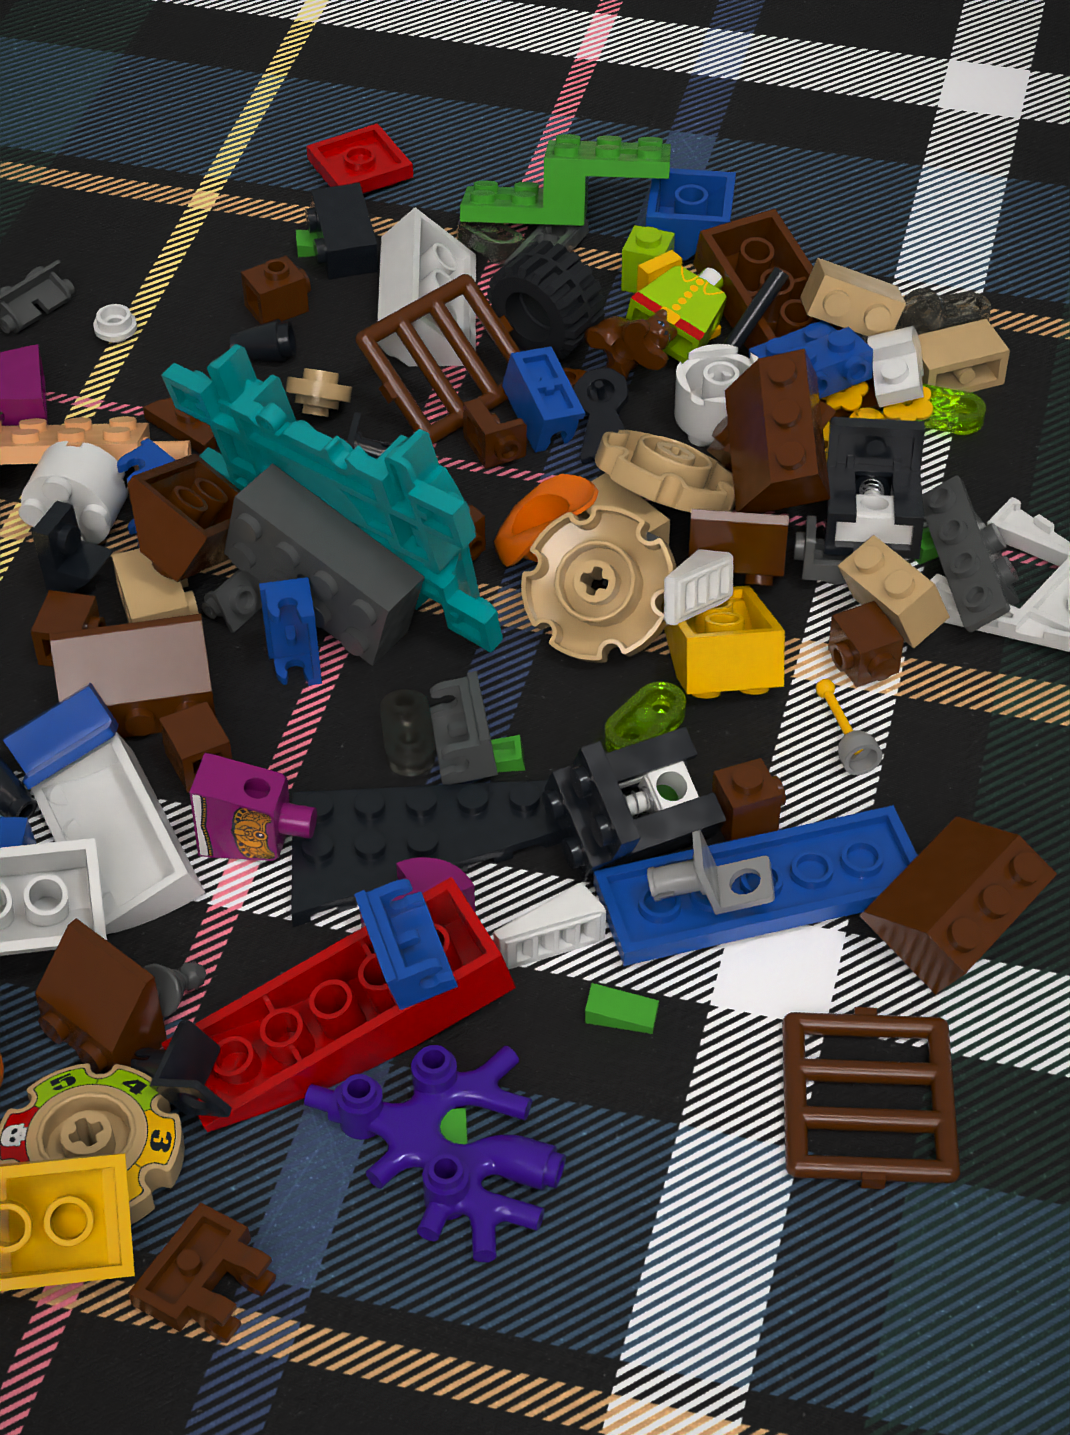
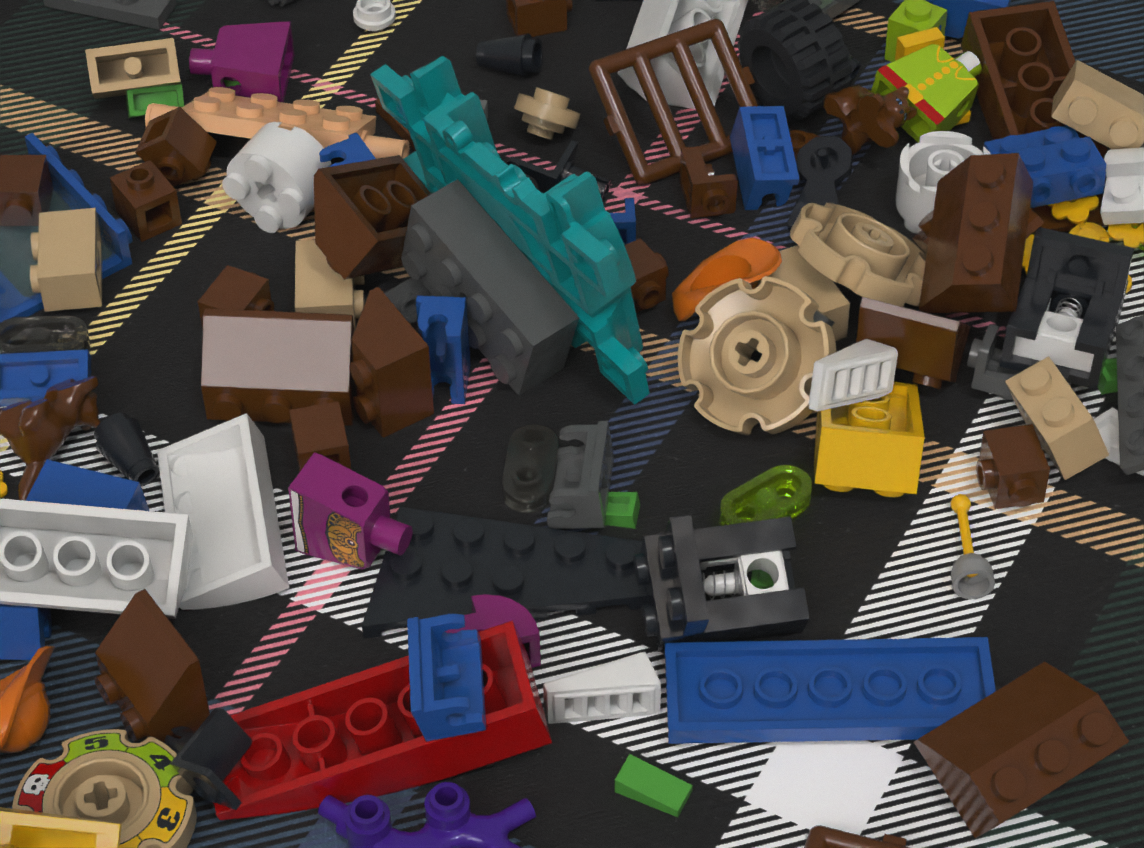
camera: 15 degrees right, 0 degrees up
(61, 735) = (196, 407): blue panel -> none
(62, 555) = (249, 228): black slope -> none
(173, 983) = (223, 671): dark grey piece -> none
(247, 659) = (389, 368): none -> reddish brown slope
(712, 880) = (774, 675): light grey bracket -> none
(748, 799) = (840, 602): reddish brown brick -> none
(757, 308) = (1003, 103): black bar -> none

